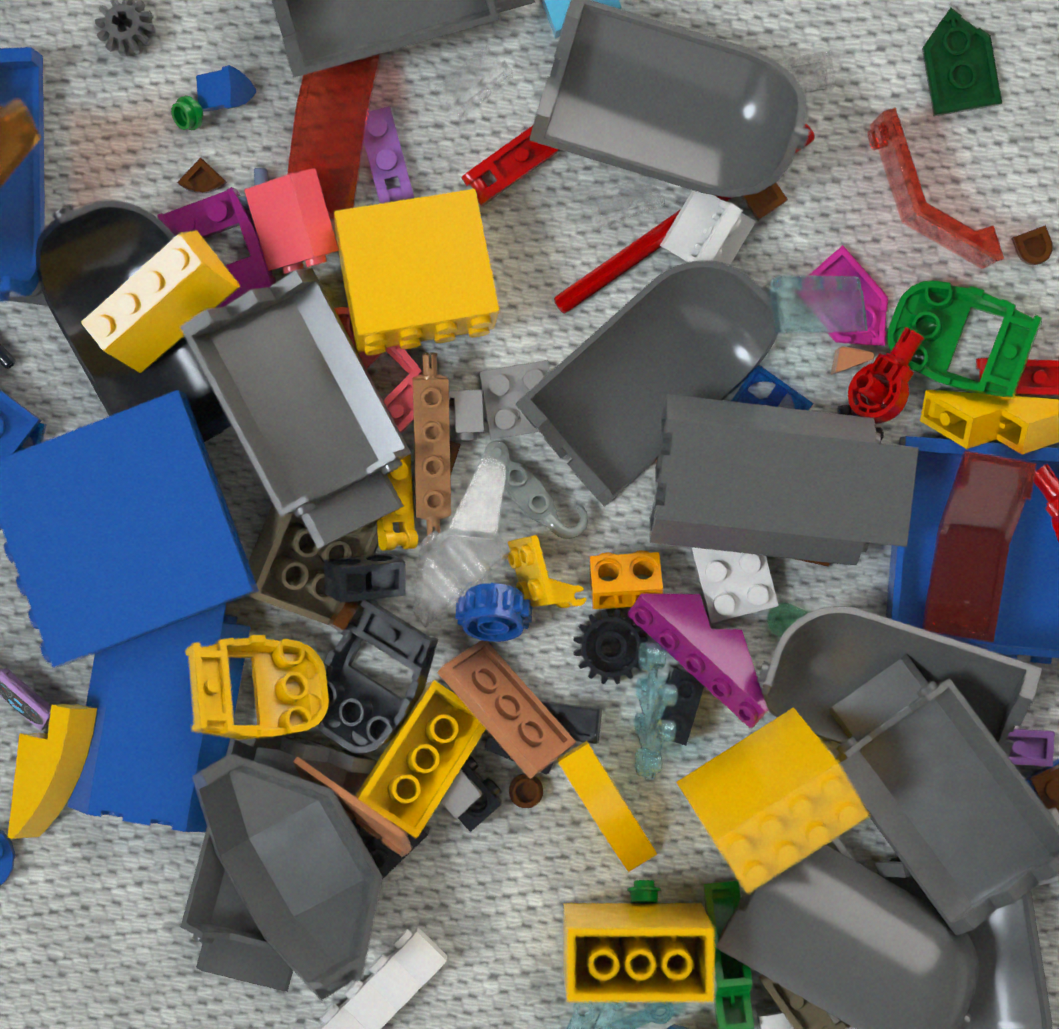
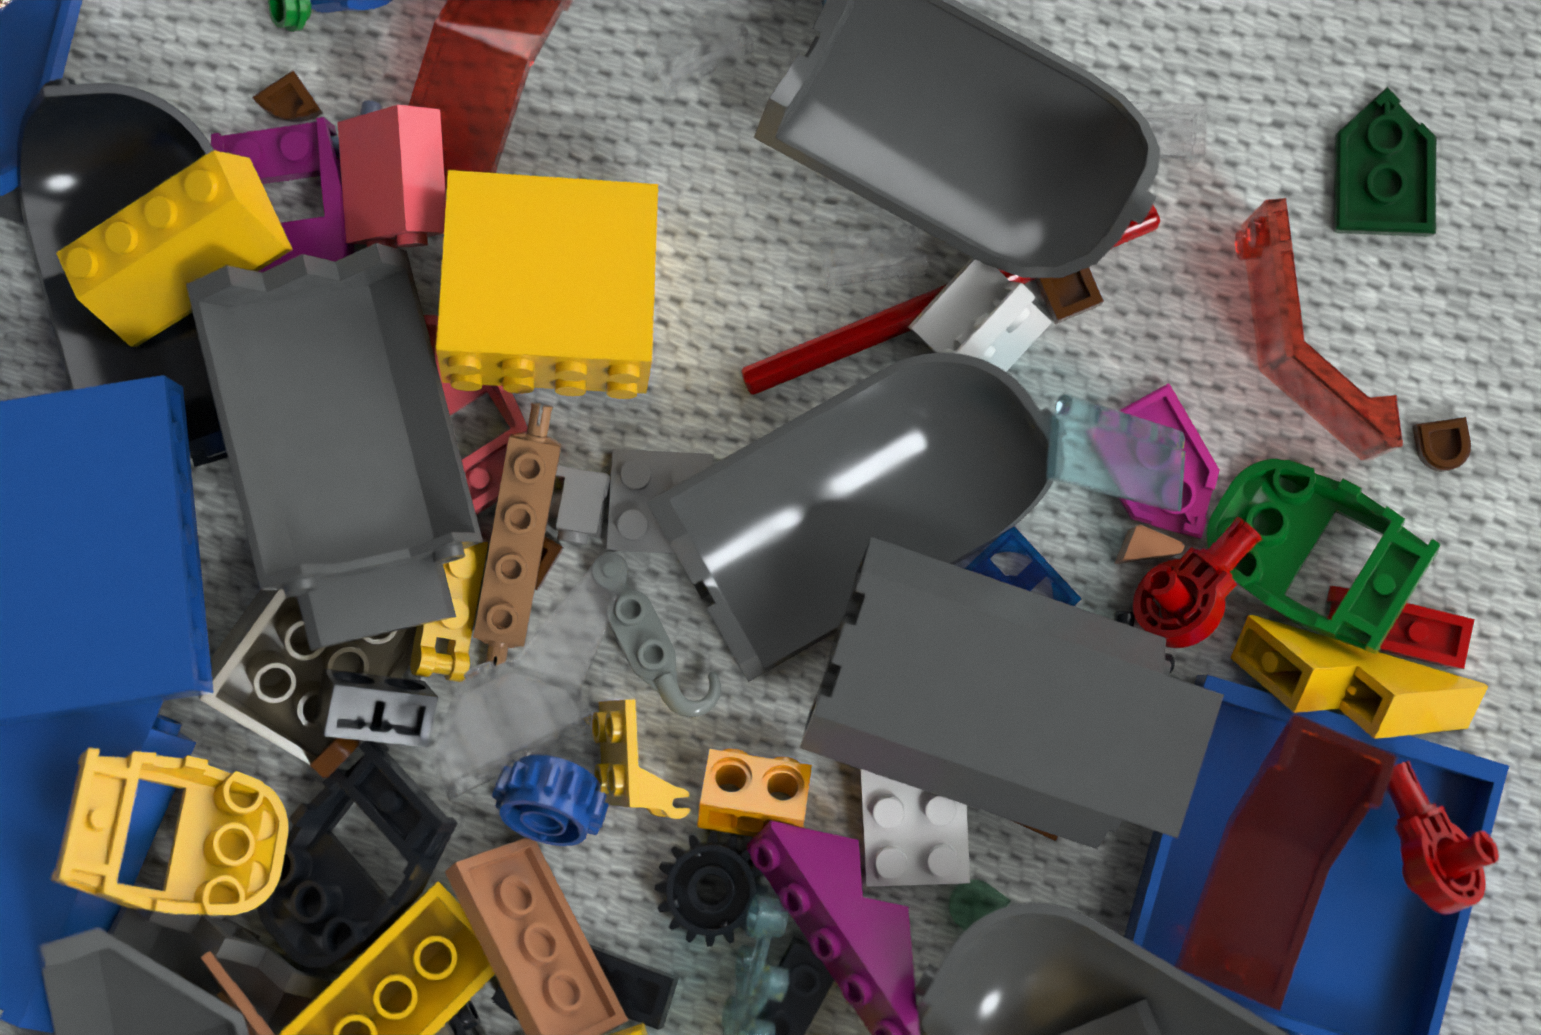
camera: 10 degrees right, 5 degrees down
(386, 156) = (551, 117): medium lavender plate -> none
(507, 166) = (718, 172): red plate -> none

